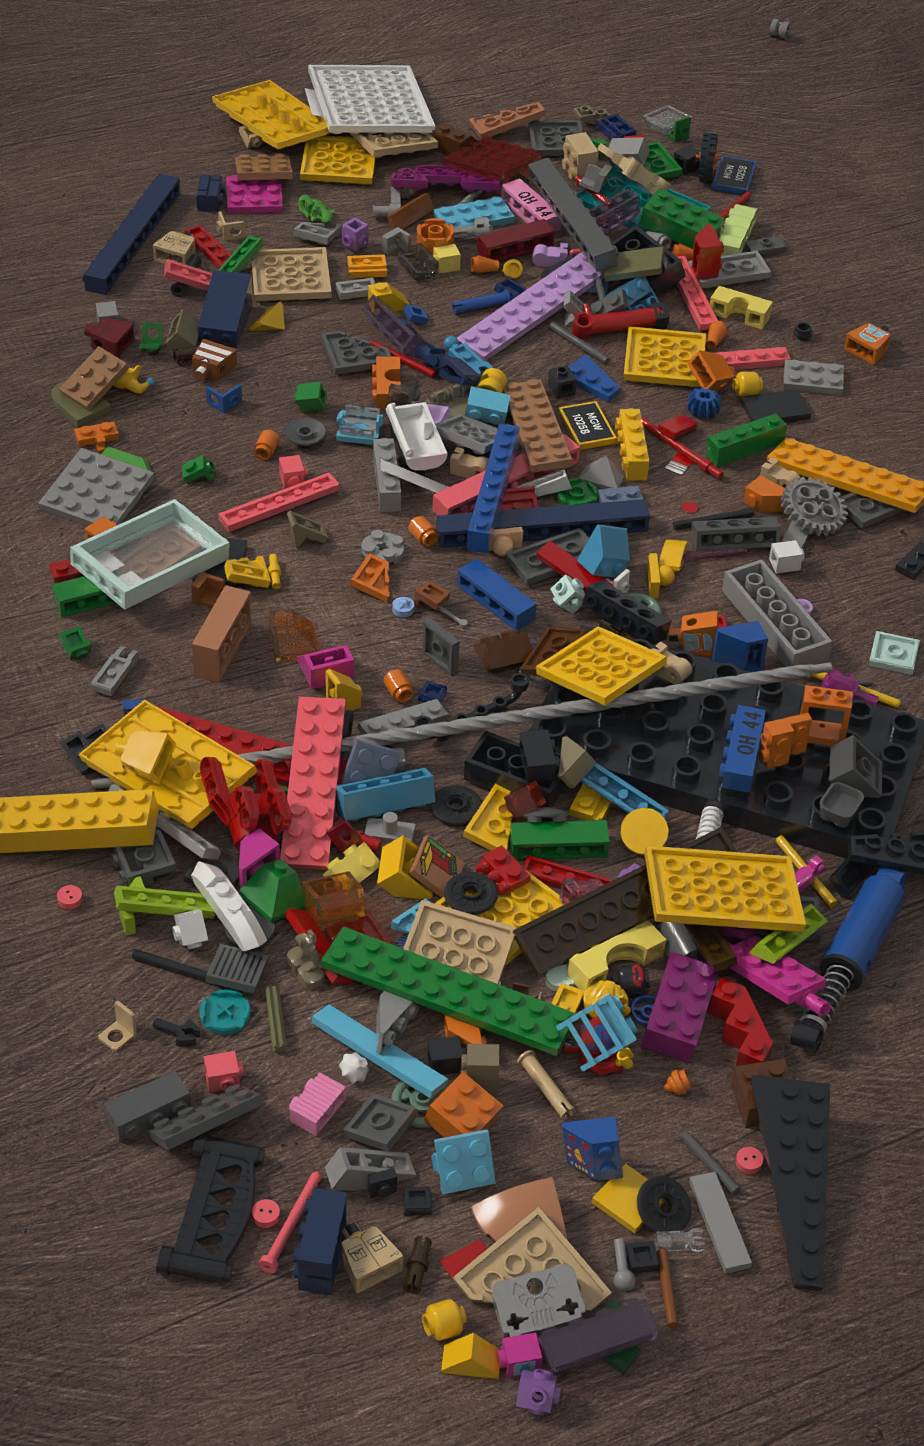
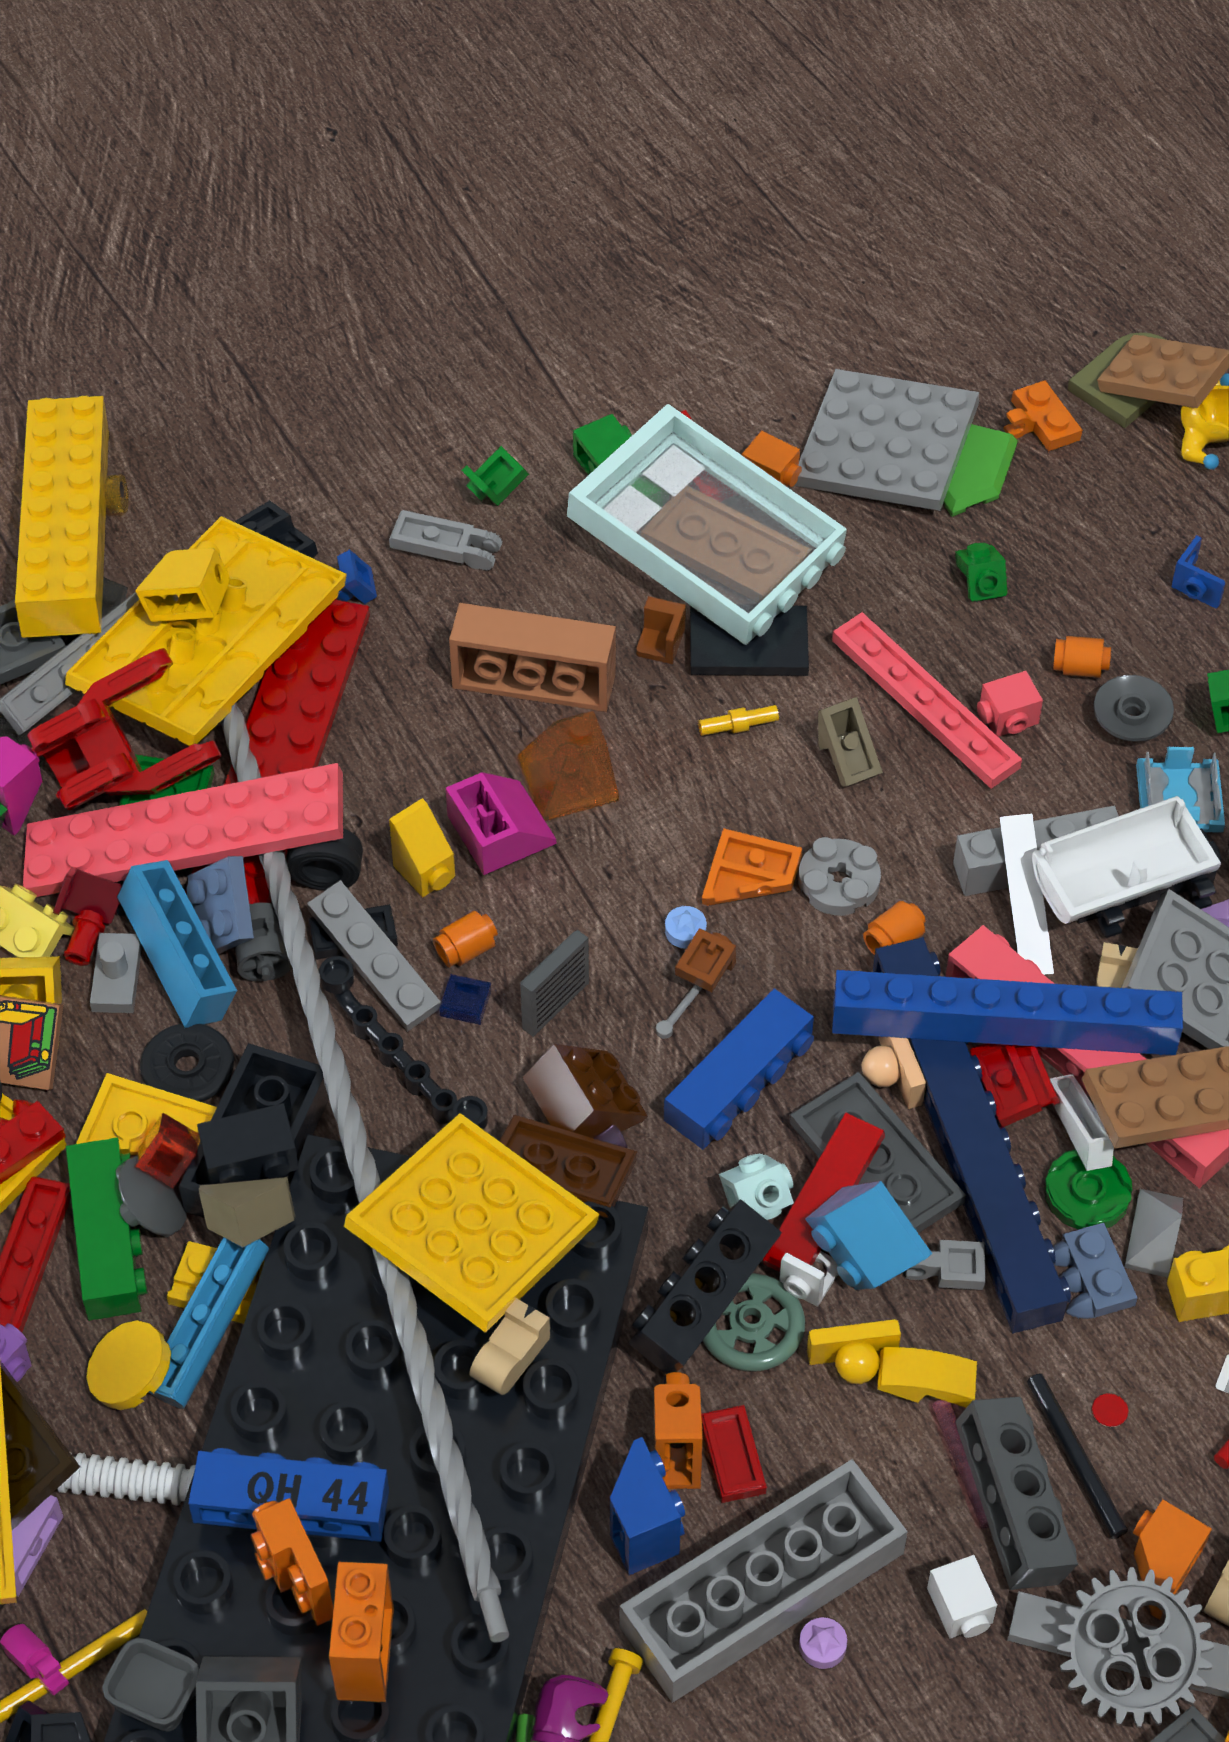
camera: 85 degrees right, 10 degrees up
(248, 572) = (716, 676): yellow wing -> none

